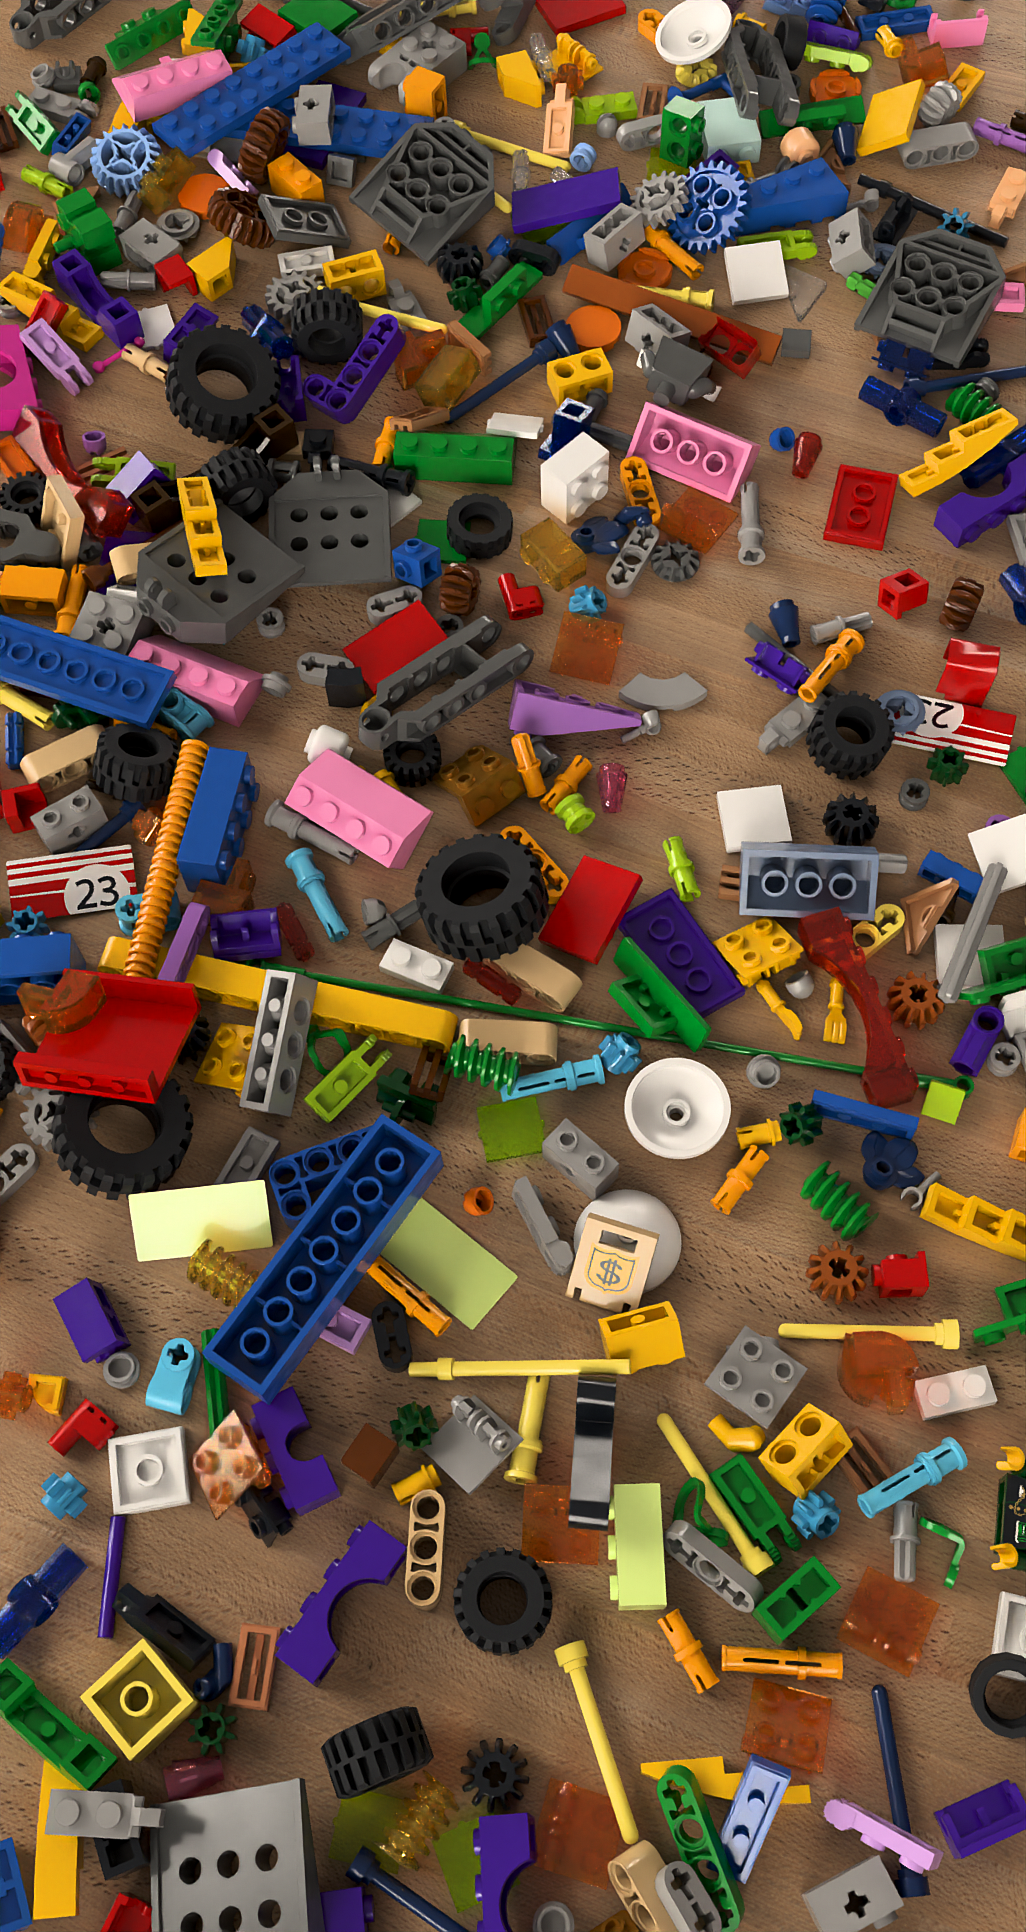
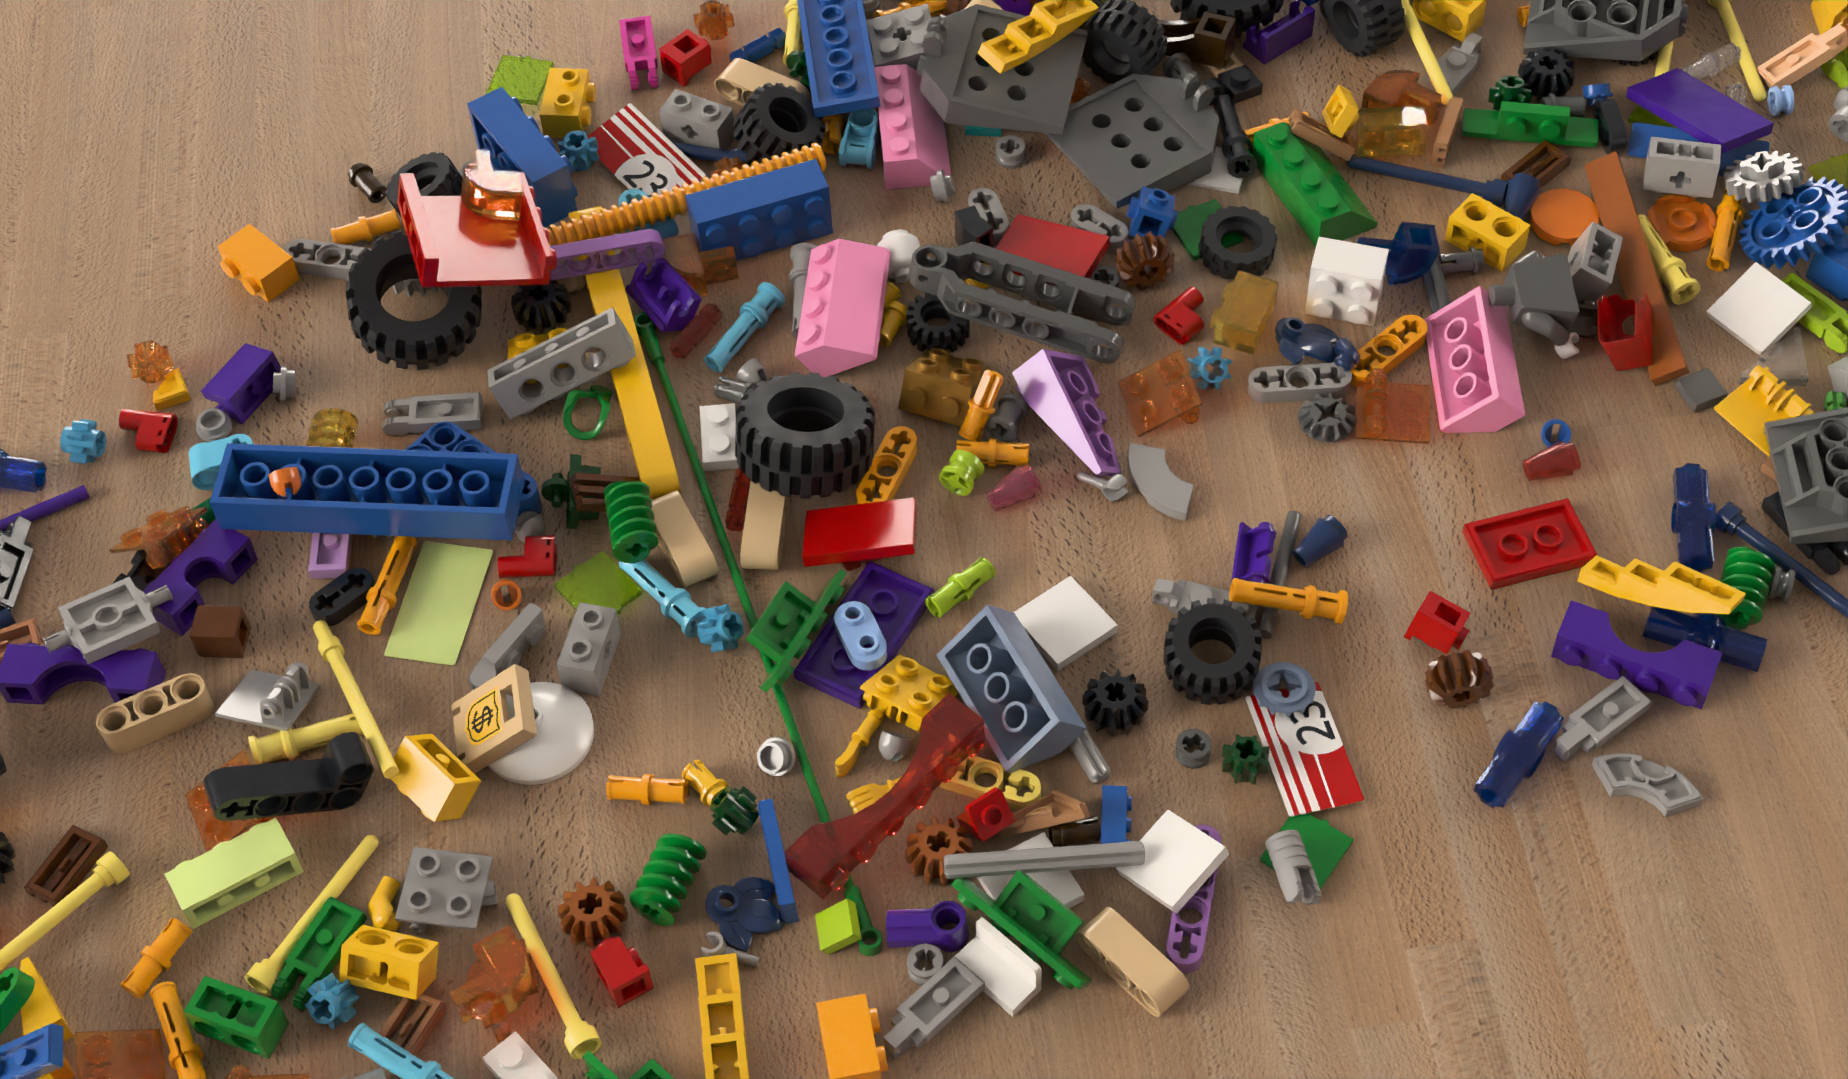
camera: 60 degrees right, 10 degrees down
(20, 804) = (695, 81): red panel -> none
(118, 1285) = (284, 383): none -> light grey plate
(149, 1471) = (136, 490): white tile -> none
(181, 1219) = (370, 394): yellowish green sticker -> none
(290, 1315) = (284, 479): none -> orange hinge
(313, 1547) = (108, 620): none -> light grey plate
(345, 1081) = (567, 437): lime hinge -> none
(384, 339) = (1334, 64): dark purple beam -> none
(408, 395) = (1341, 112): none -> yellow plate
(414, 1426) = (262, 648): dark green gear -> none
(421, 1480) = (218, 683): yellow pin -> none
(456, 1166) = (537, 561): none -> red piece
(495, 1566) = (123, 765): black tyre -> none
(515, 425) = (1379, 209): white piece -> none
(559, 1728) = (72, 868): none -> reddish brown tile
(680, 1088) = (680, 680): white dish -> none
(689, 959) = (859, 632): none -> light blue plate
(716, 1535) = (286, 893): green piece -> none
(729, 1582) = (245, 935): light grey beam -> none
(750, 532) = (1409, 461): light grey pin -> none
(830, 630) = (1335, 580): light grey axle -> none
(835, 317) = (1760, 401): none -> yellow hinge
(892, 357) = (1756, 502): clear blue hinge -> none
(906, 953) = (986, 815): none -> red bracket
(968, 671) = (1362, 705): red piece -> none

